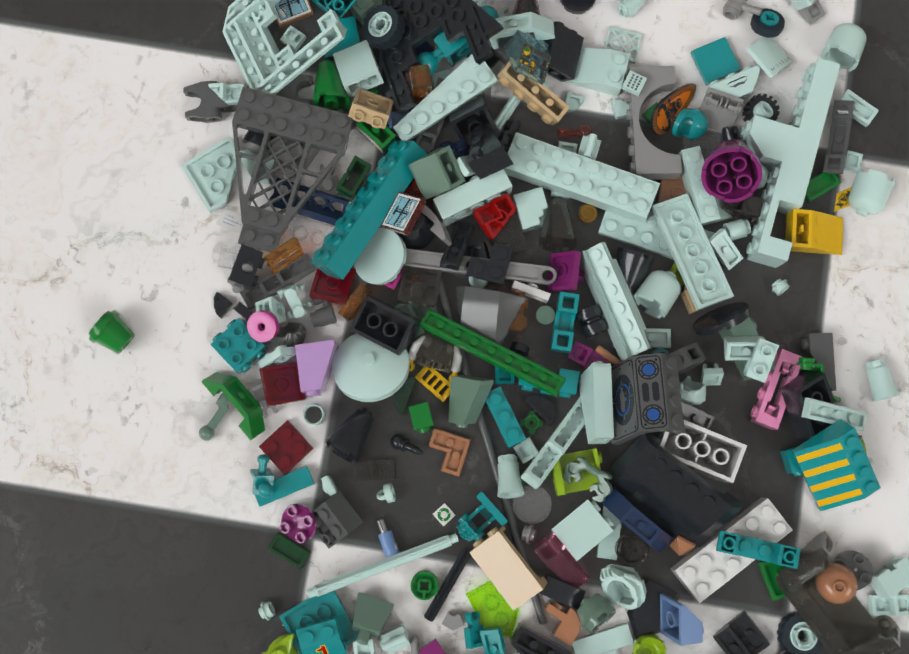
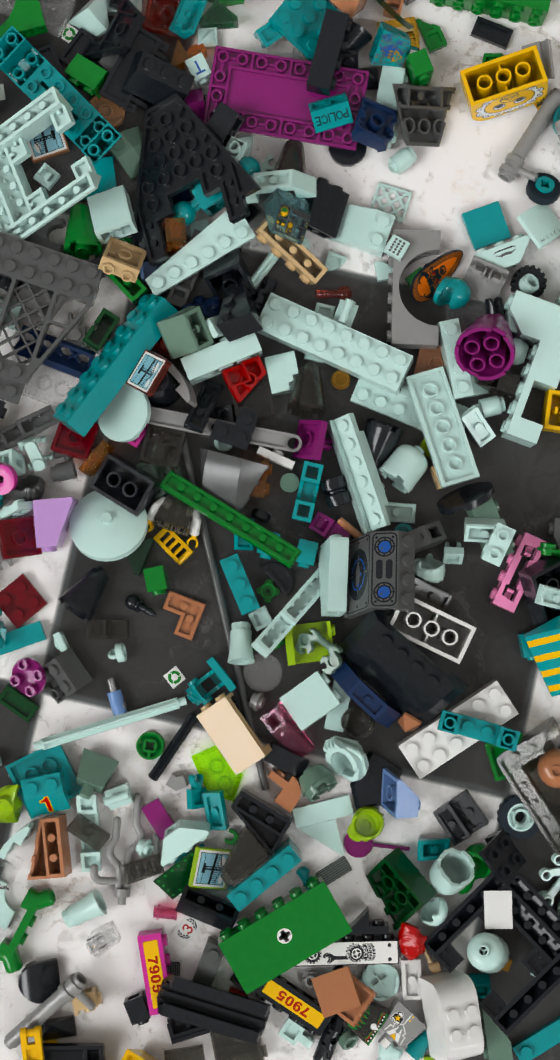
camera: 10 degrees right, 5 degrees up
(283, 252) = (25, 404): clear orange tile -> none
(305, 414) = (41, 566): light aqua piece -> none
(383, 27) = (143, 163): black wheel -> none
(467, 398) = (203, 563): sand green slope -> none
(780, 286) = (531, 467): light aqua plate -> none

